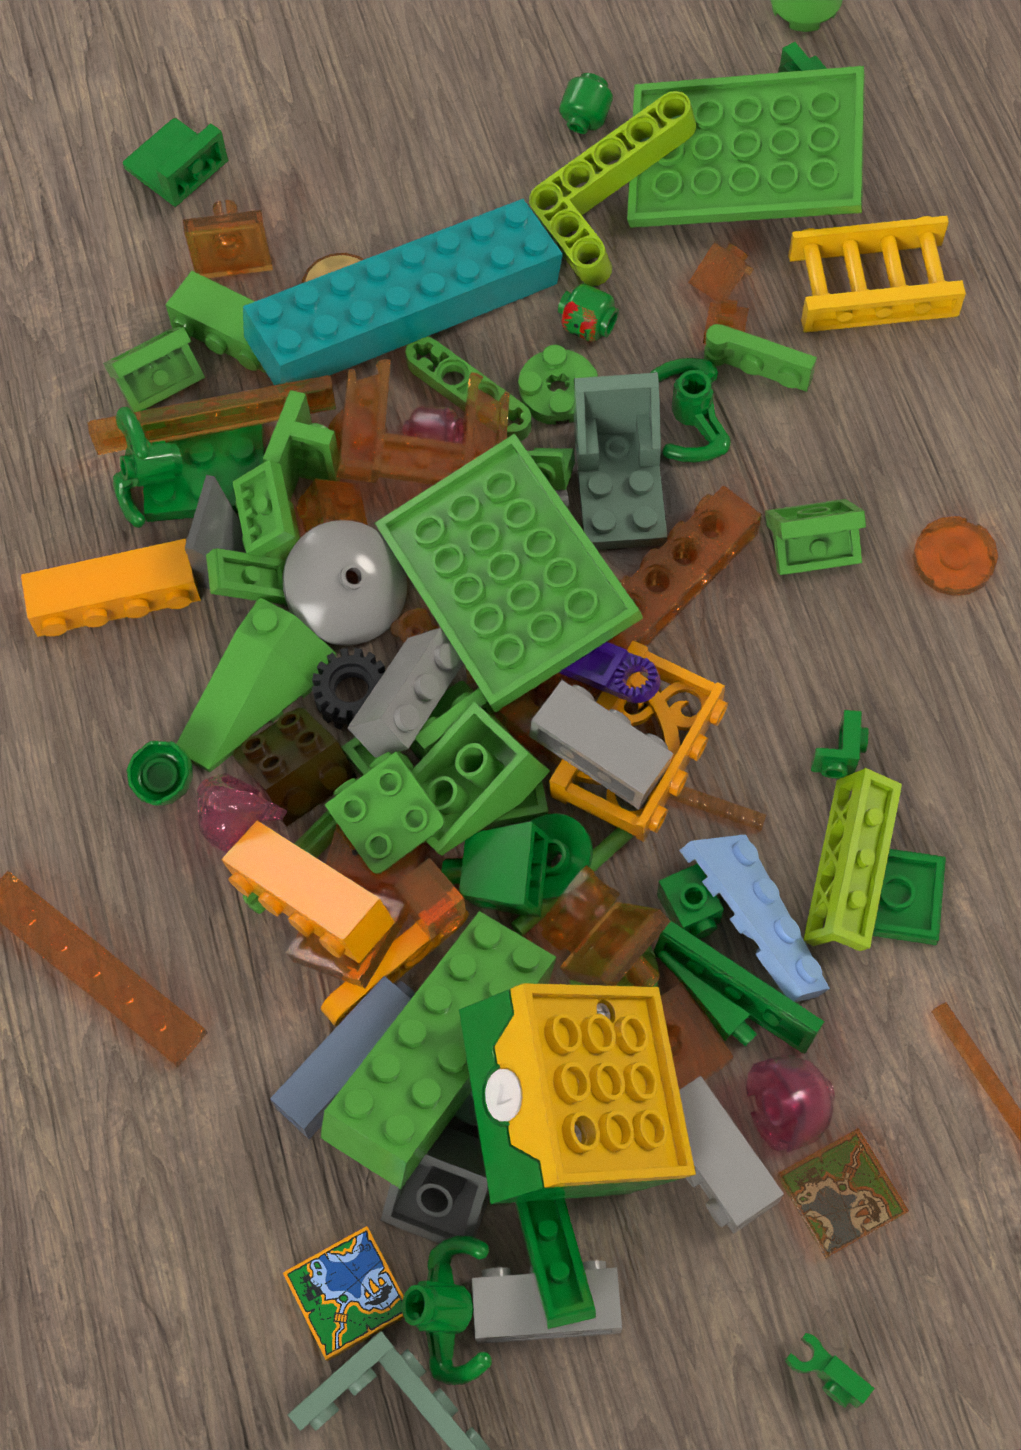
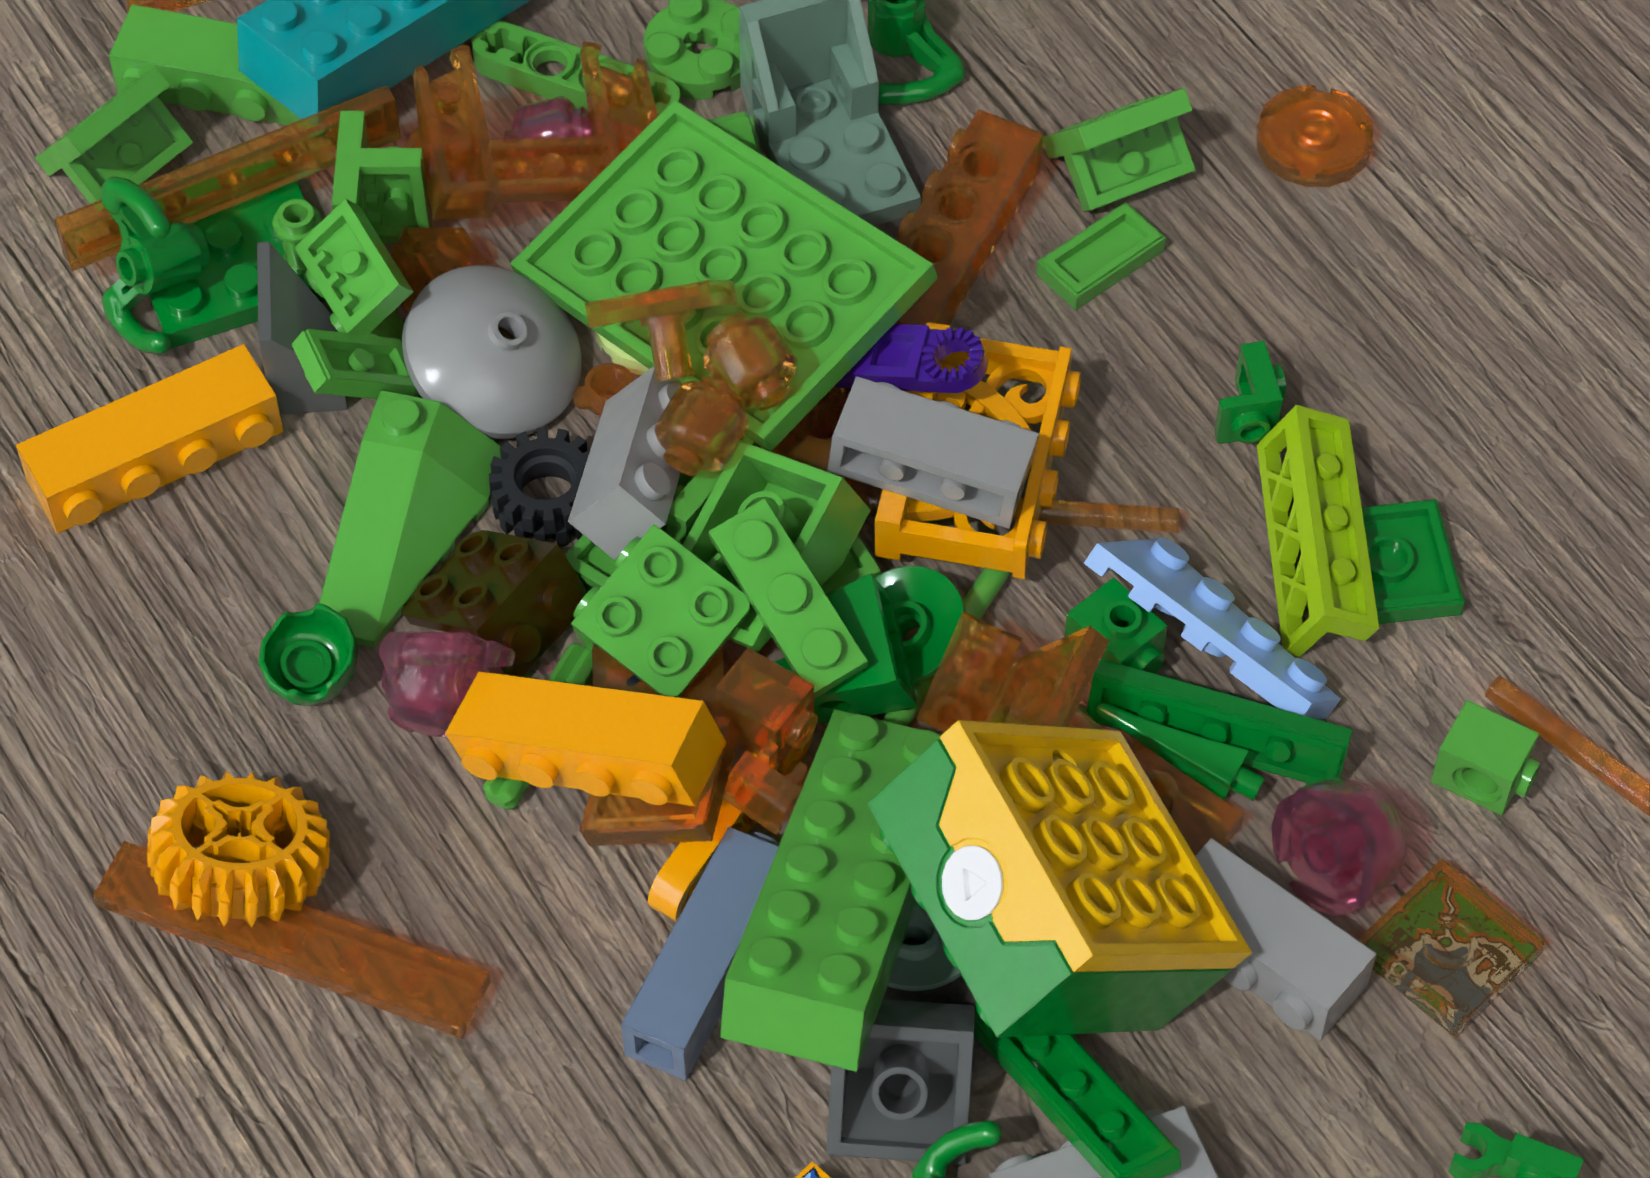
camera: 20 degrees left, 10 degrees down
(61, 920) = (238, 855): none -> light orange gear
(240, 461) = (292, 224): none -> bright green pin
(411, 960) = (762, 790): none -> clear orange tile
(449, 597) = (664, 316): none -> clear orange tile
(450, 687) = (701, 426): none -> clear orange head
(467, 829) = (787, 598): none -> bright green plate
(494, 650) = (751, 360): none -> clear orange head
(776, 610) = (1100, 256): none -> bright green tile
(914, 1064) = (1486, 758): none -> bright green brick

